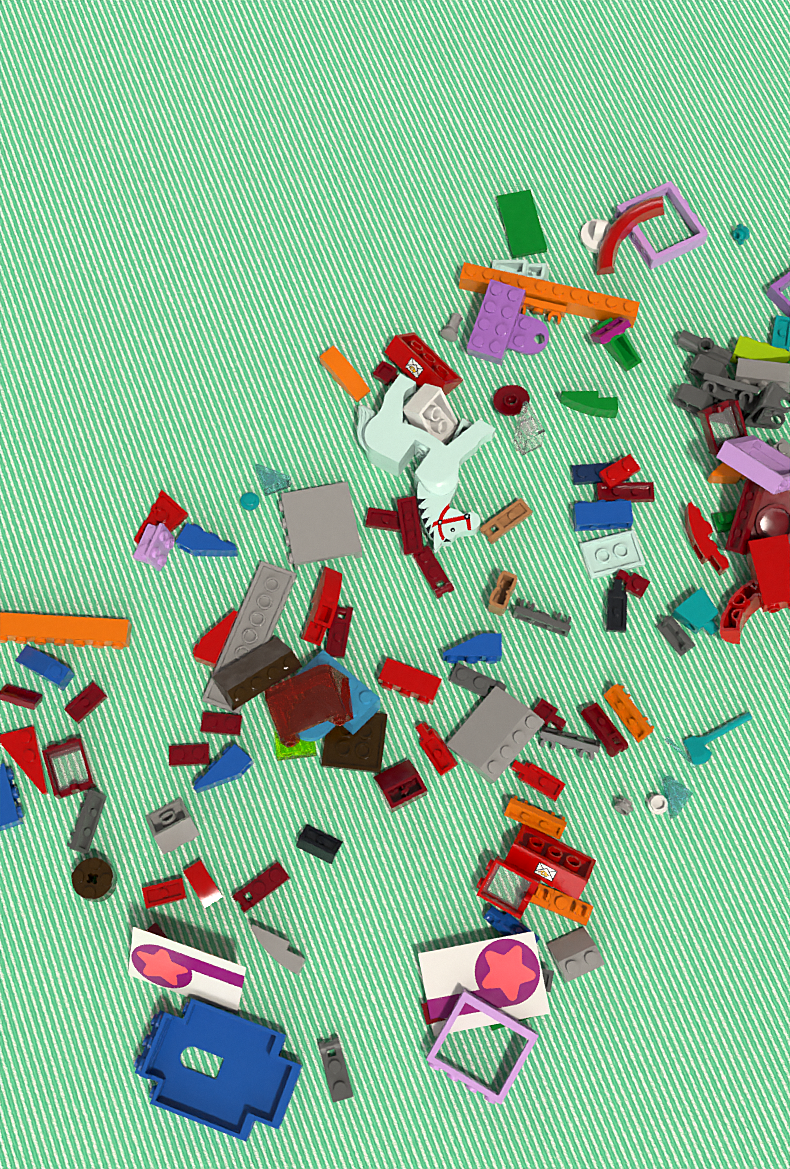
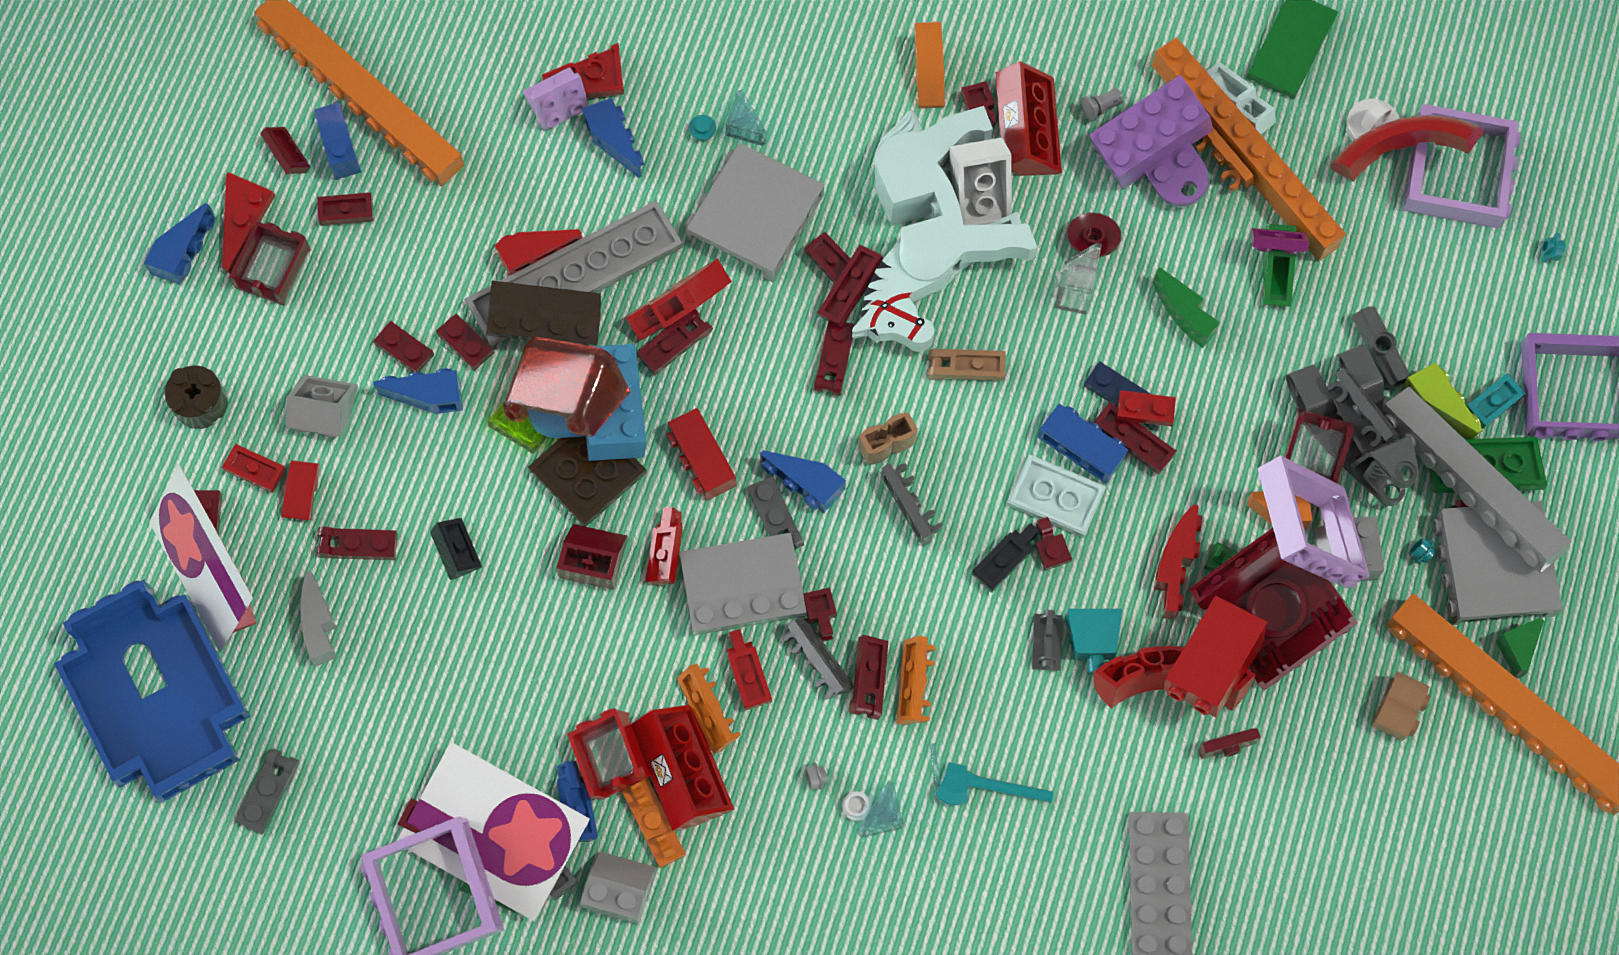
camera: 40 degrees right, 0 degrees up
(87, 822) = (241, 332): dark grey plate -> none

